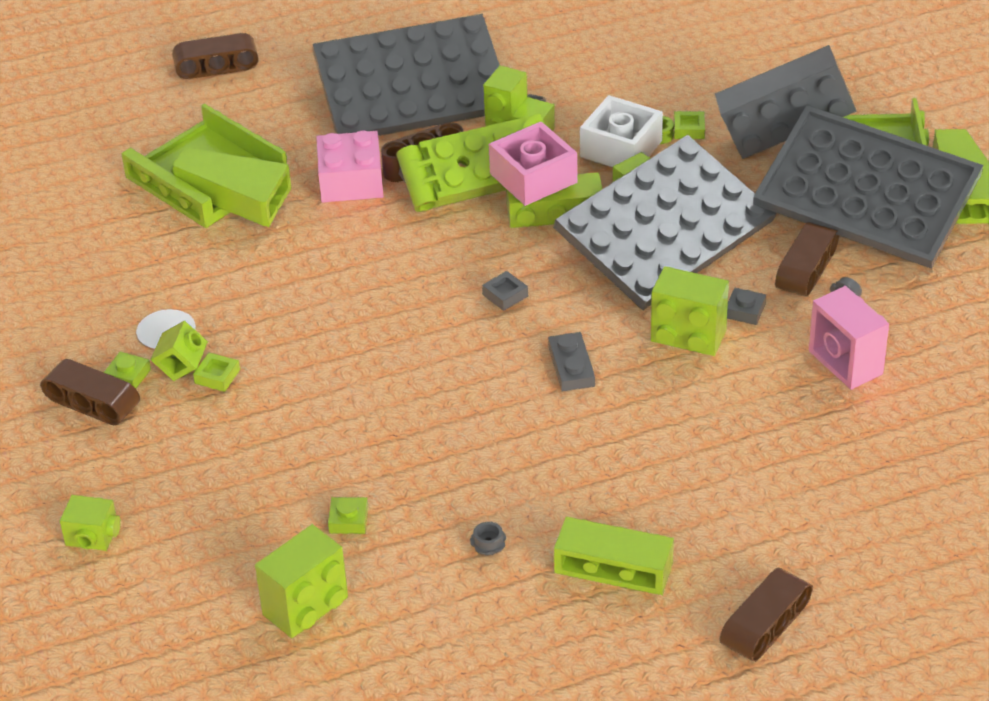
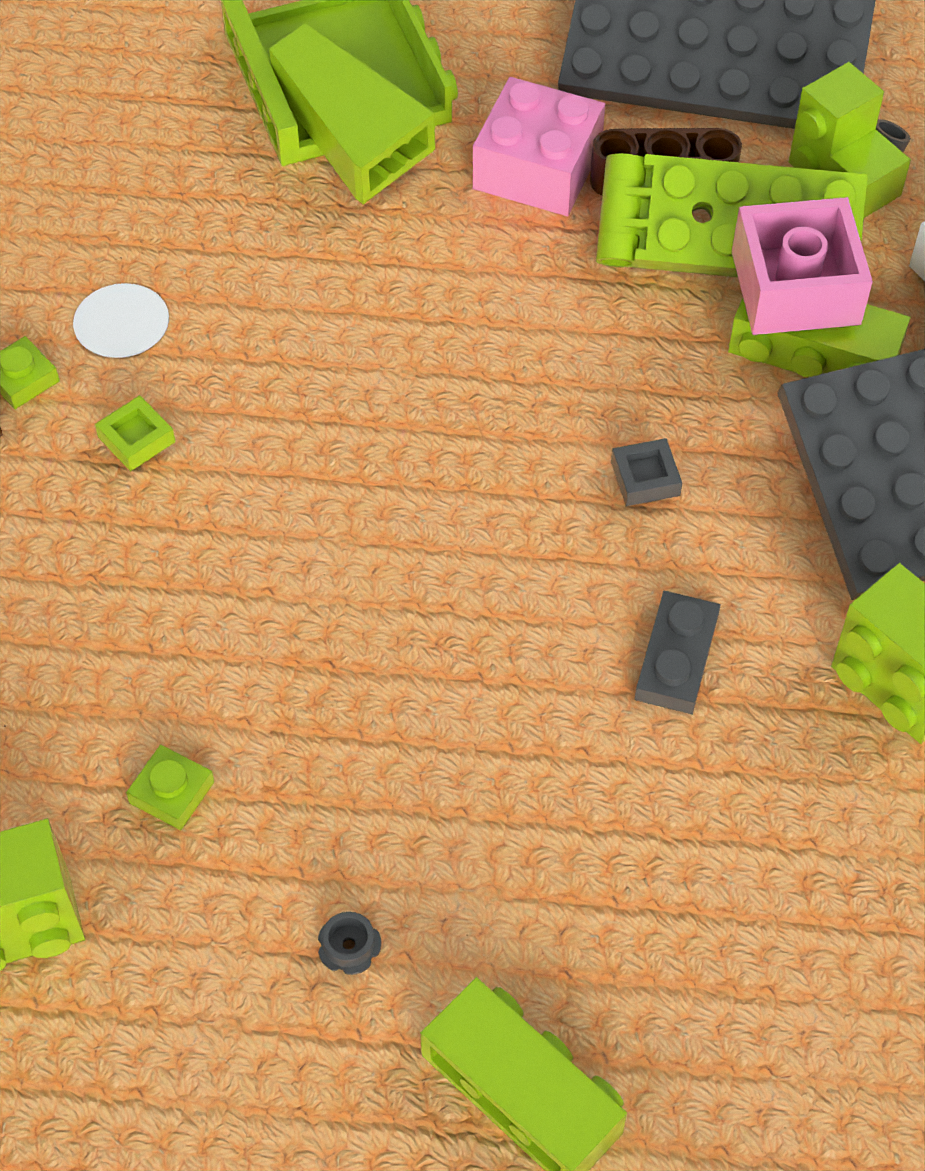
camera: 25 degrees right, 15 degrees up
(179, 350) = (98, 374): lime brick -> none

